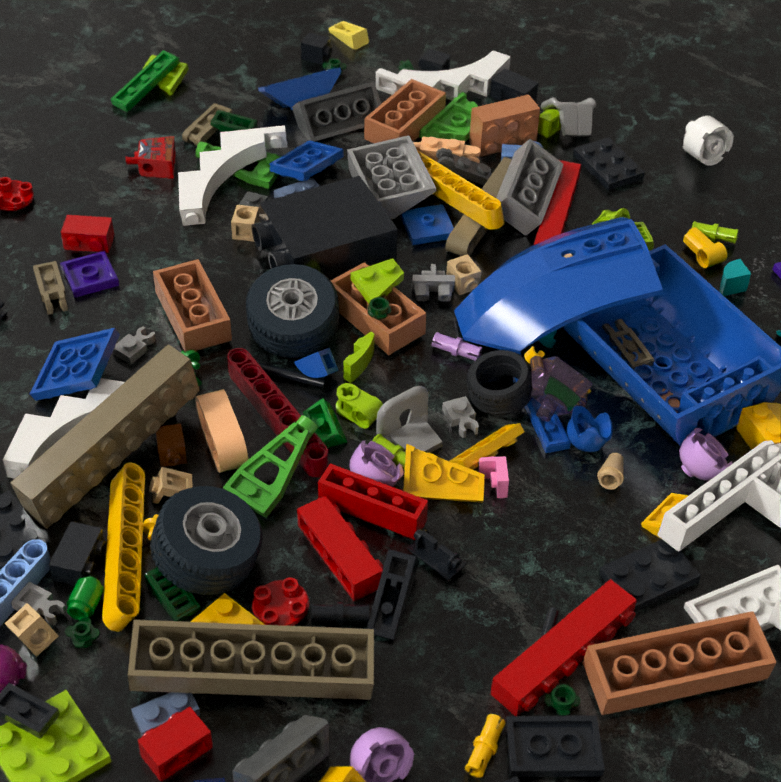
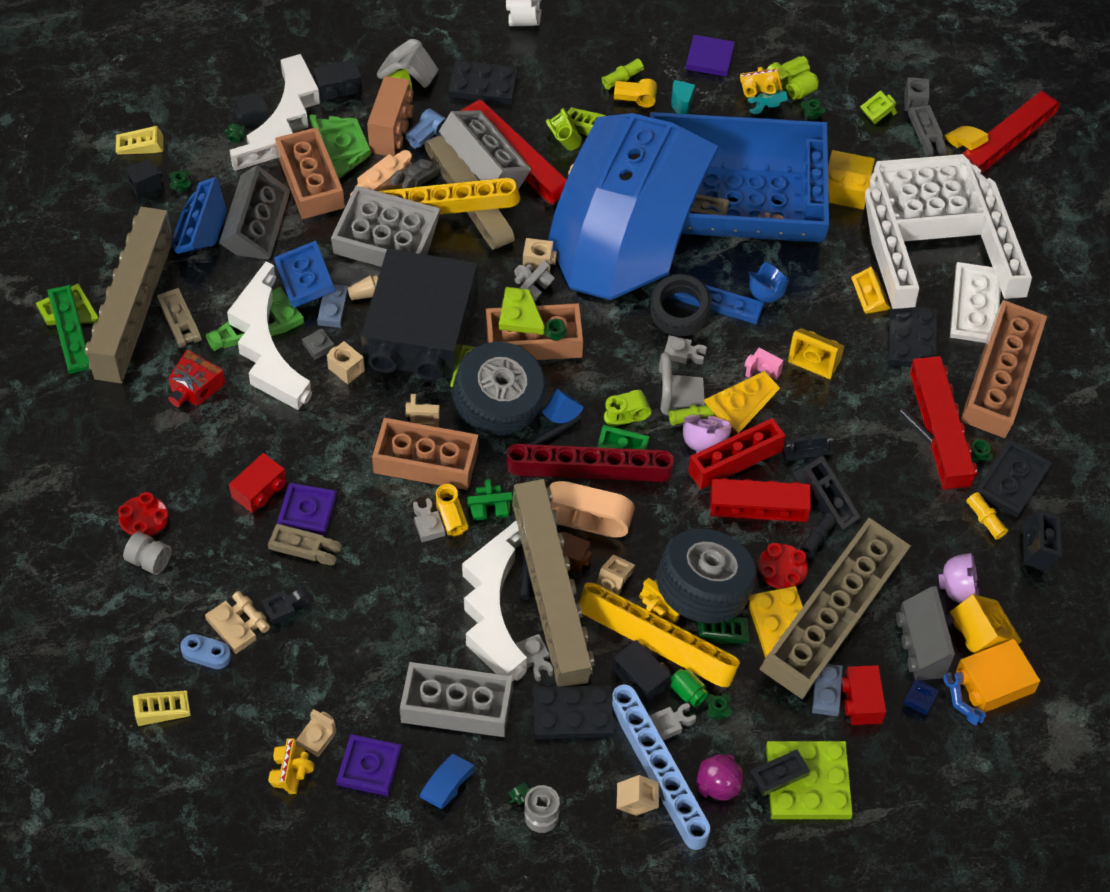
camera: 55 degrees left, 10 degrees up
(31, 629) = (701, 734): tan brick -> none
(75, 364) = (432, 570): blue plate -> none
(158, 339) = (451, 510): none -> yellow piece
(195, 87) = (129, 295): none -> dark tan brick
(235, 286) = (422, 414): none -> tan bracket
(237, 122) = (208, 289): dark green slope -> none
(256, 493) = (662, 524): bright green plate -> none
(357, 362) = (574, 374): lime slope -> none
(427, 224) = (454, 240): blue plate -> none
(456, 346) = (612, 309): lavender pin -> none
(488, 446) = (731, 353): yellow plate -> none
(548, 502) = (815, 353): none -> yellow slope
(556, 385) = (722, 272): clear purple torso -> none
(611, 473) = (812, 297): tan cone -> none
(702, 456) = (845, 237): lavender cylinder -> none

